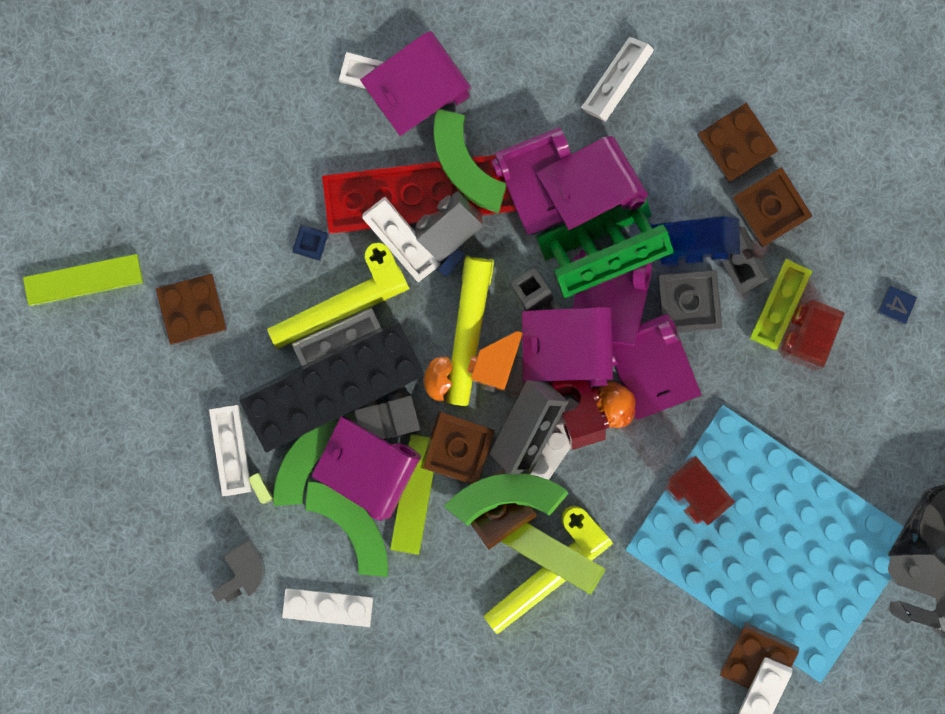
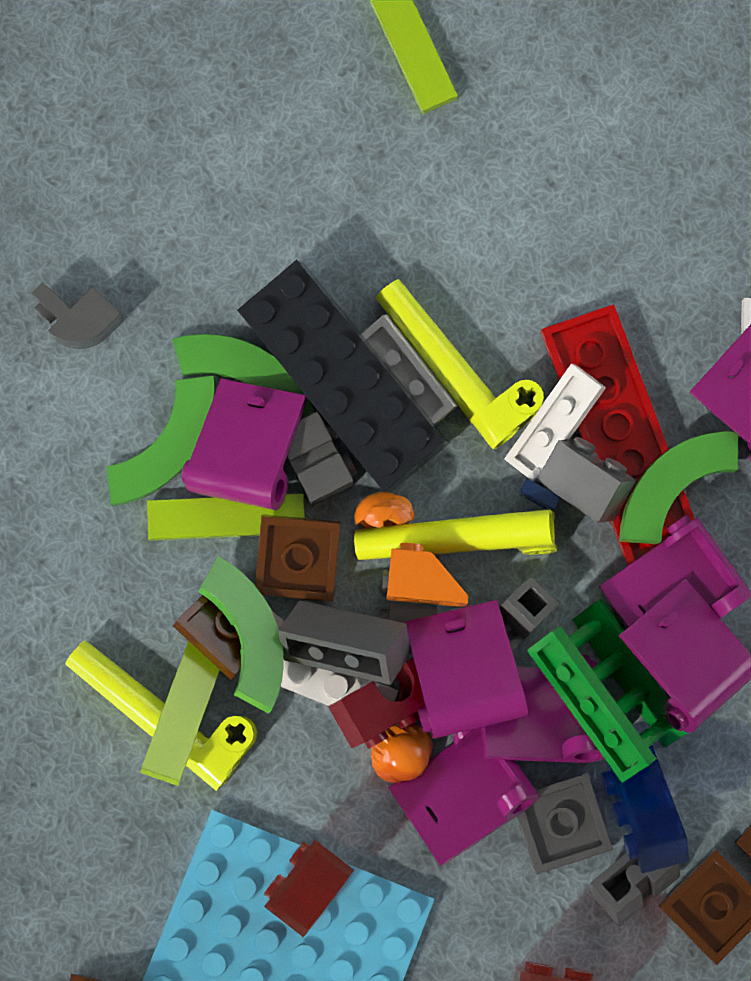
camera: 70 degrees right, 5 degrees down
(191, 309) = (402, 180): reddish brown plate -> none
(230, 450) = (231, 268): white plate -> none
(261, 488) = (191, 317): yellowish green tile -> none
(310, 243) = (523, 311): dark blue tile -> none
(327, 607) = (55, 437): white plate -> none
(780, 305) = (586, 948): lime plate -> none

